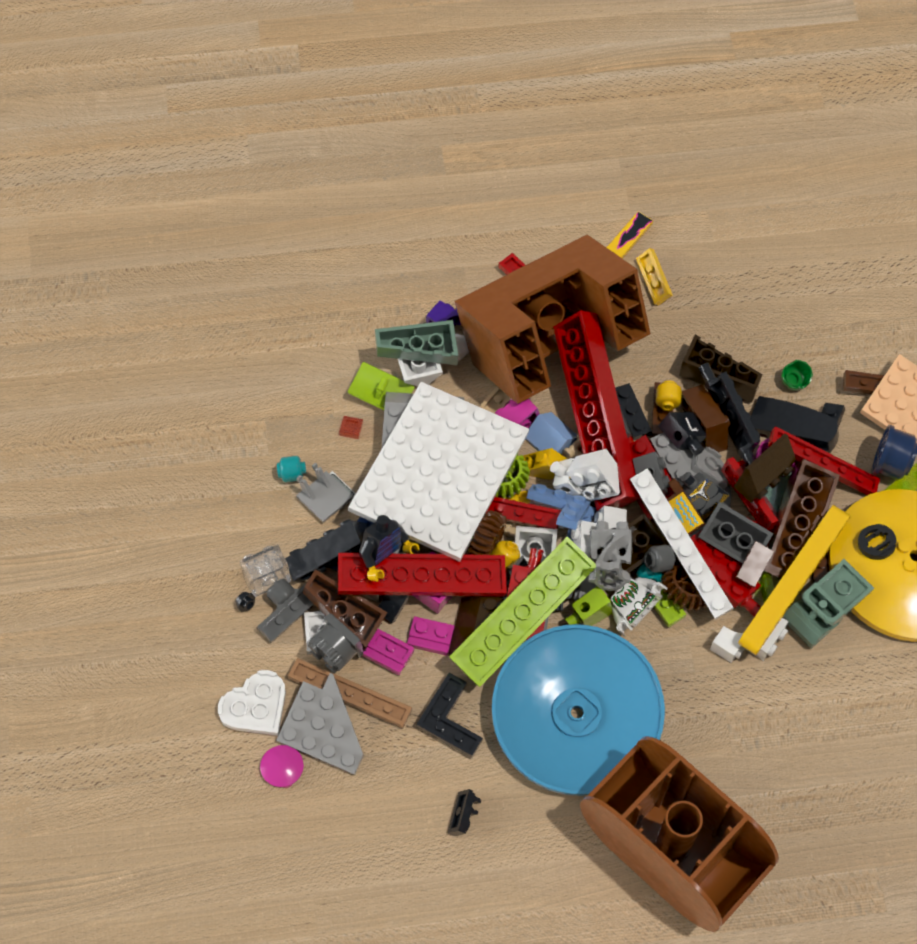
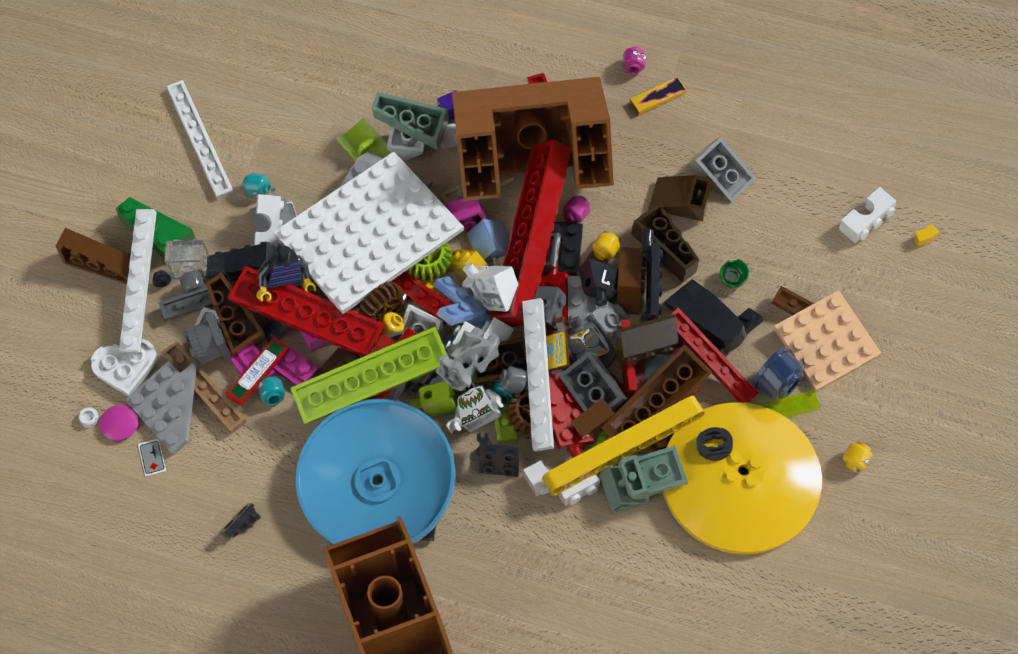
camera: 30 degrees right, 0 degrees up
(168, 607) = (93, 256): none -> reddish brown wedge
(204, 446) = (200, 140): none -> white tile
(209, 552) = (165, 227): none -> green wedge
(227, 613) = (137, 281): none -> white plate
(246, 774) = (88, 417): none -> white tile
(326, 486) = (270, 207): none -> white arch
(334, 787) = (151, 457): none -> sticker
(351, 427) = (326, 170): clear red tile -> none
(399, 654) = (257, 371): none -> tile
(422, 668) = (271, 391): none -> teal head
(435, 720) = (260, 435): black plate -> none
(590, 209) = (634, 60): none -> dark pink head
(620, 370) = (576, 209): none -> dark pink head
(654, 276) = (657, 139): yellow plate -> none
(679, 642) = (497, 458): none -> black plate
(710, 319) = (683, 195): none -> dark brown slope
(728, 282) = (724, 167): none -> light grey slope
(886, 264) = (857, 226): none -> white arch

